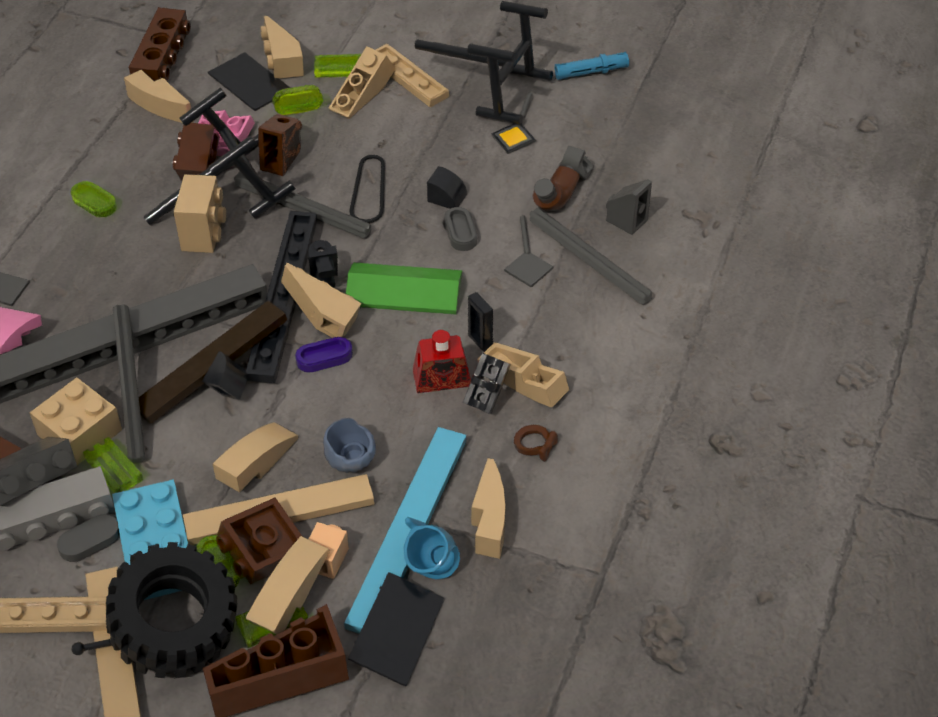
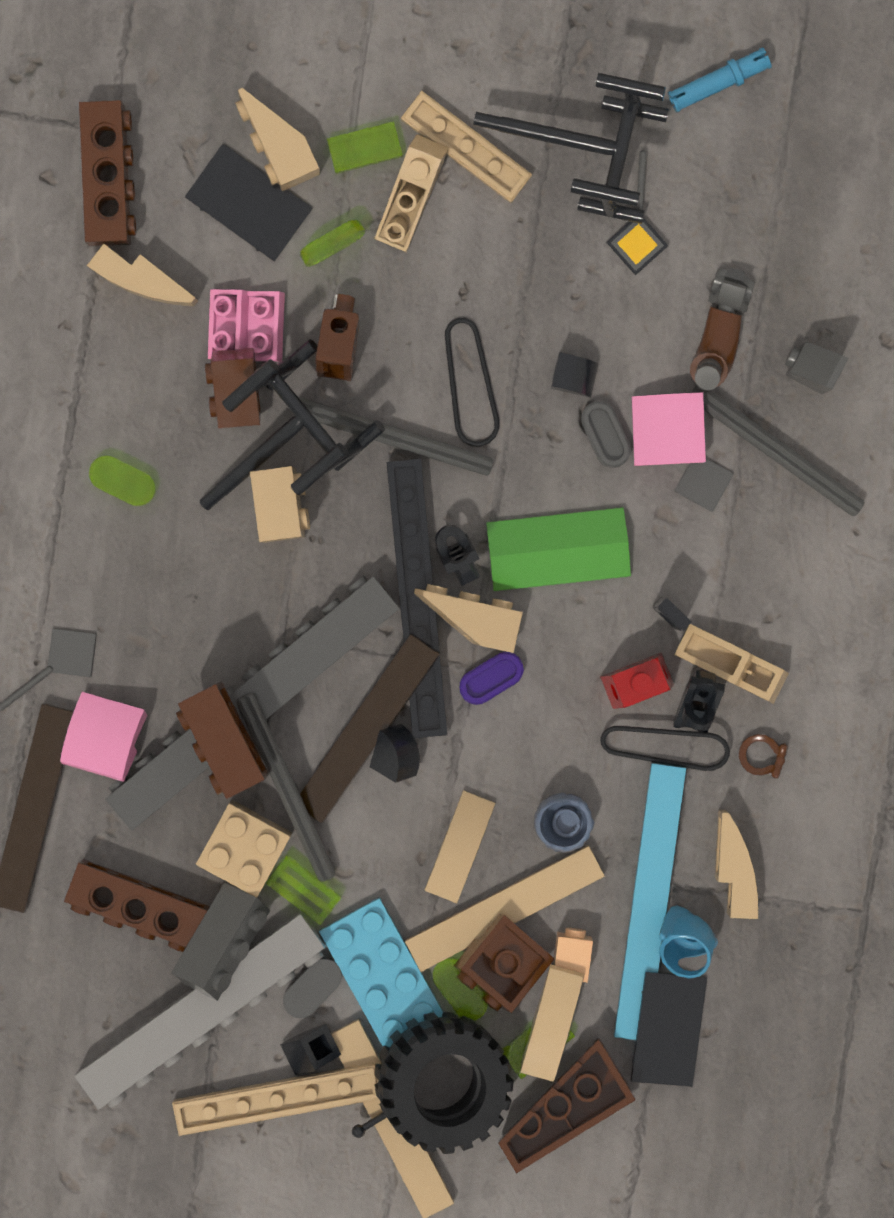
camera: 15 degrees left, 40 degrees up
(65, 577) = (310, 1050): none -> black brick
(89, 320) = (222, 740): none -> reddish brown brick
(454, 404) = (669, 732): none -> black piece
(508, 225) = (668, 429): none -> bright pink slope

